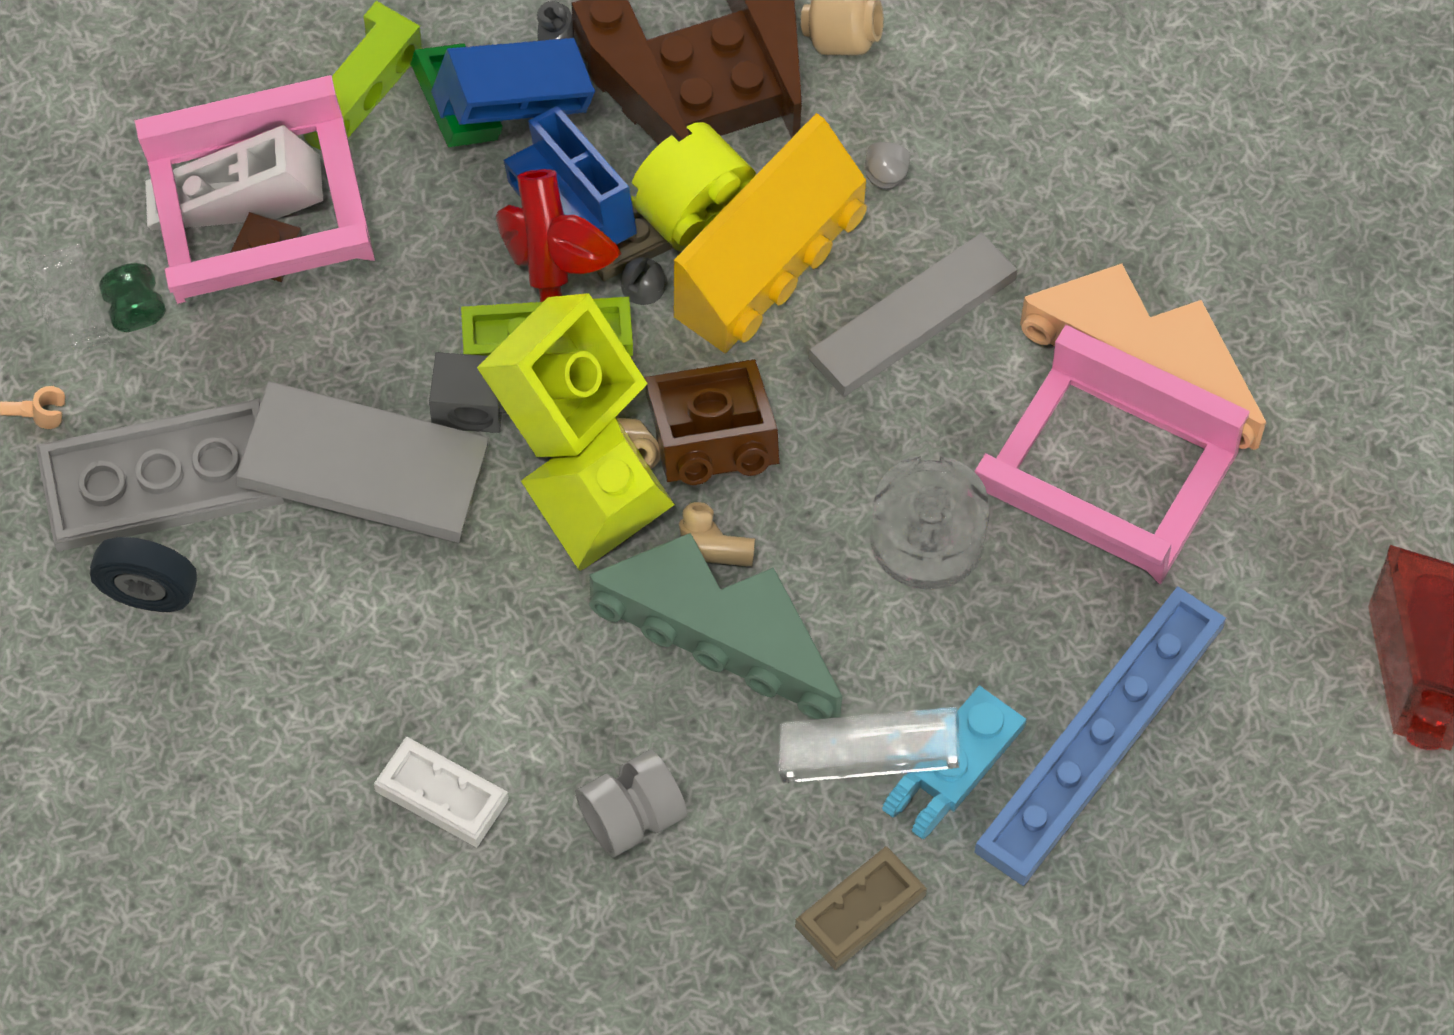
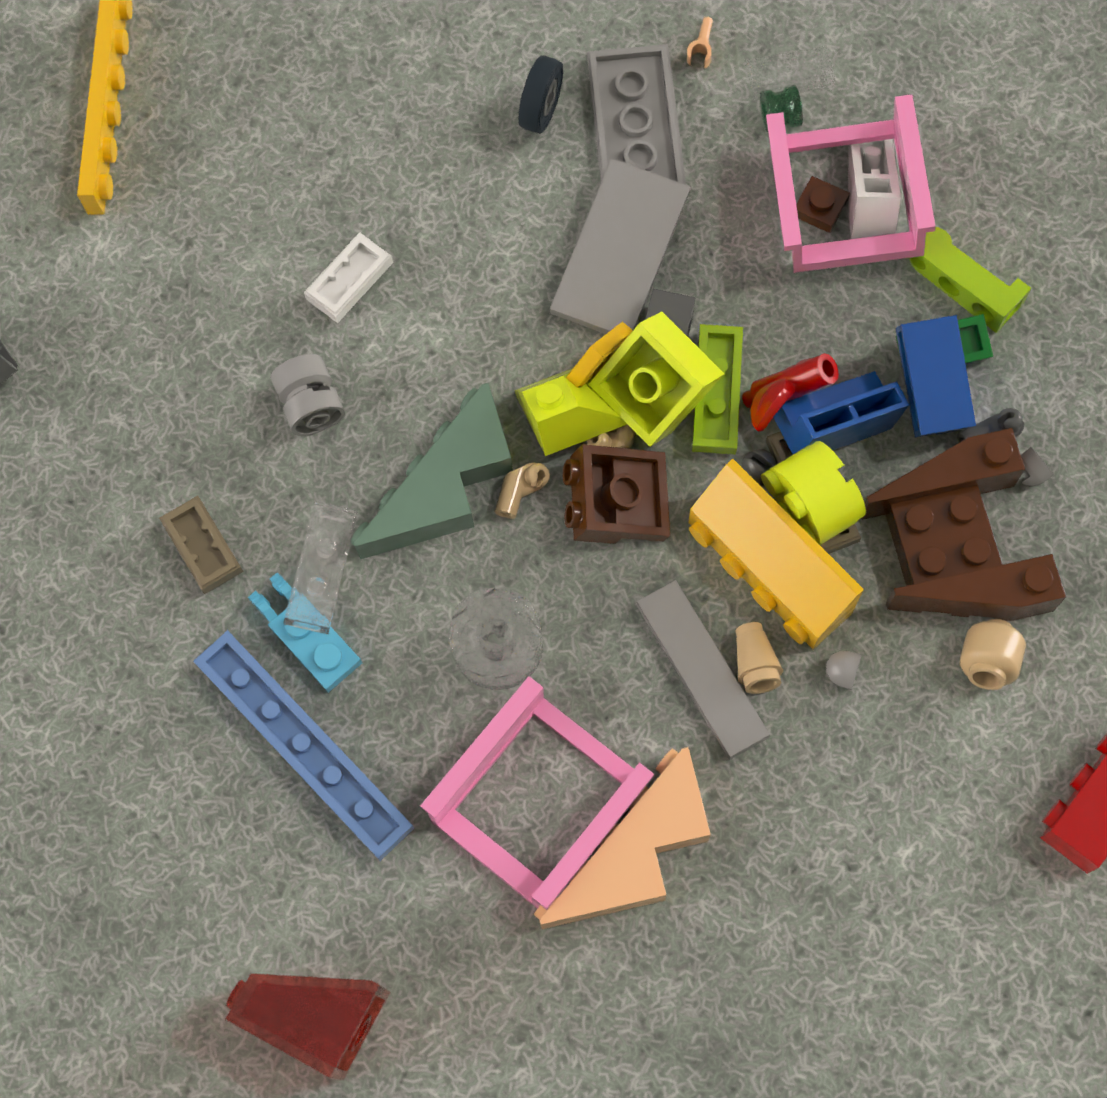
camera: 105 degrees right, 10 degrees up
(533, 447) = (598, 355): none -> yellow tile
(893, 254) = (756, 660): none -> tan cone

